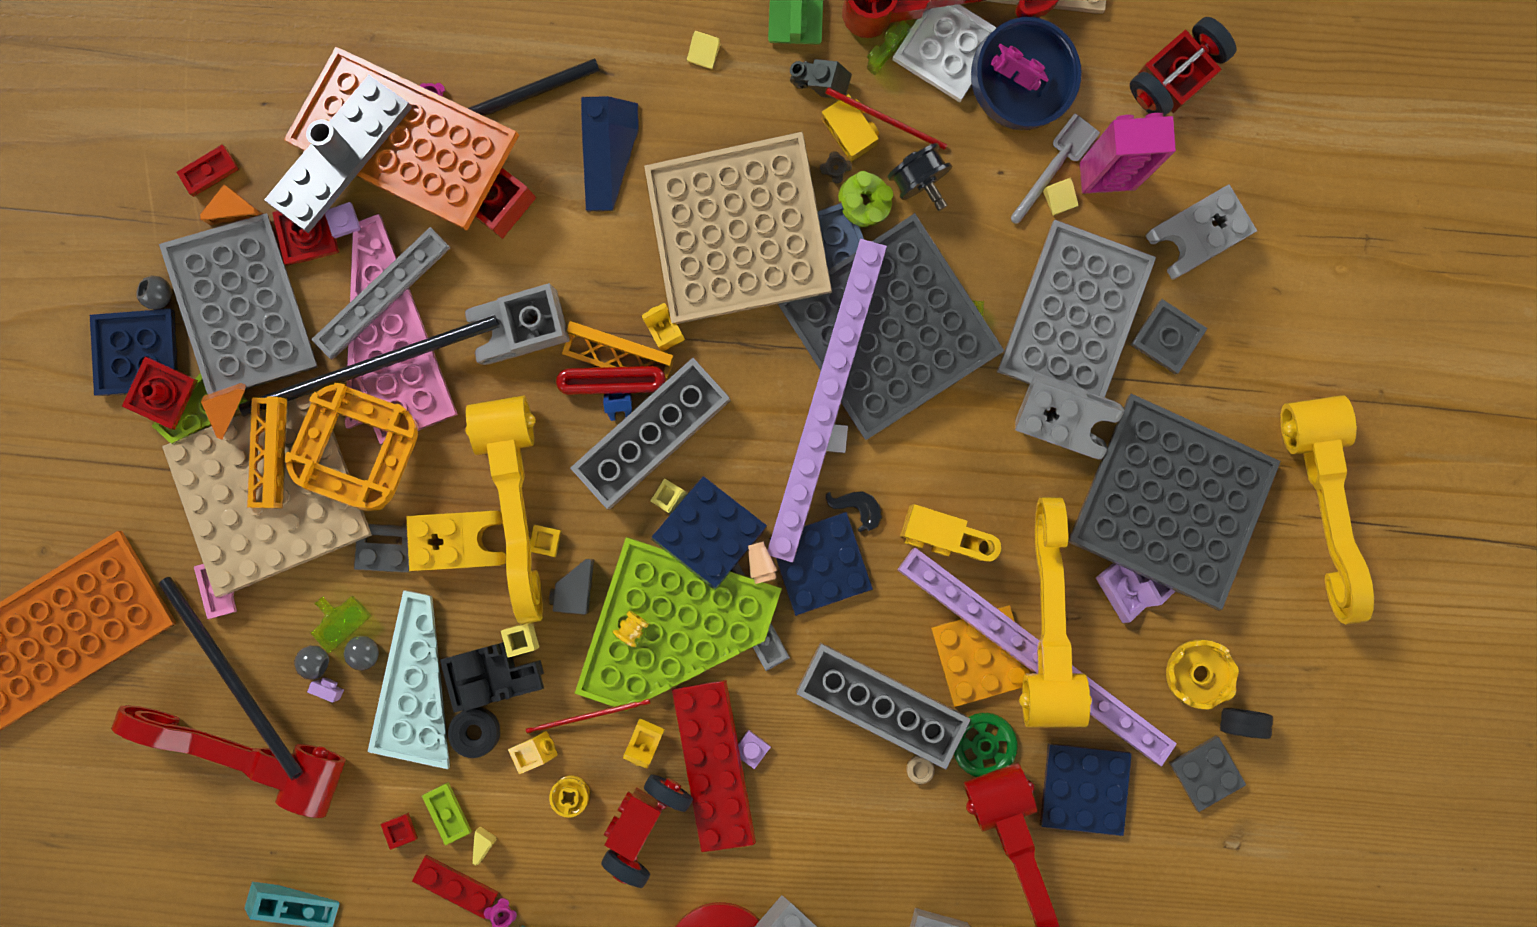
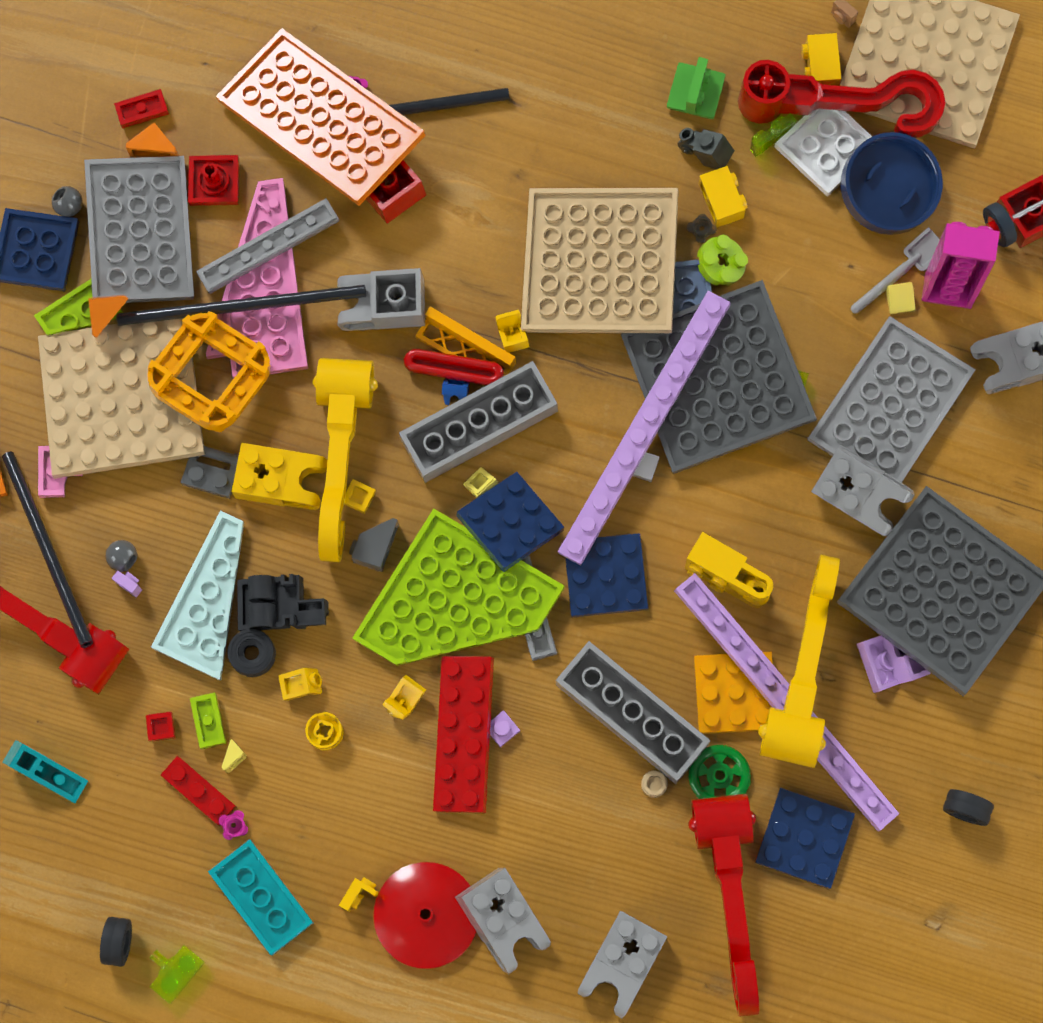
camera: 15 degrees right, 10 degrees down
(159, 393) = (50, 287): red plate -> none
(273, 453) = (137, 360): light orange fence -> none
(337, 152) = (262, 115): plate -> none
(338, 622) = (154, 526): clear neon green plate -> none
(342, 220) = (249, 175): lavender plate -> none
(361, 653) = (167, 558): dark grey piece -> none
(520, 639) = (315, 576): light yellow brick -> none
(588, 716) = (359, 661): red piece -> none
(607, 140) = (502, 159): dark blue wedge -> none
(631, 628) = (418, 588): yellow bush -> none
(632, 828) = (379, 767): brick -> none
(703, 49) = (606, 101): light yellow slope -> none
(761, 564) = (551, 558): light nougat cone -> none
(866, 504) = (657, 528): black piece -> none
(885, 118) = (757, 195): red axle -> none
(920, 172) = (775, 248): black wheel -> none
(1028, 71) = (880, 168): dark pink hinge -> none
(1168, 336) = (972, 443): dark grey plate -> none
(1207, 773) = (923, 850): dark grey plate -> none
(1220, 679) = (955, 752): yellow plate -> none

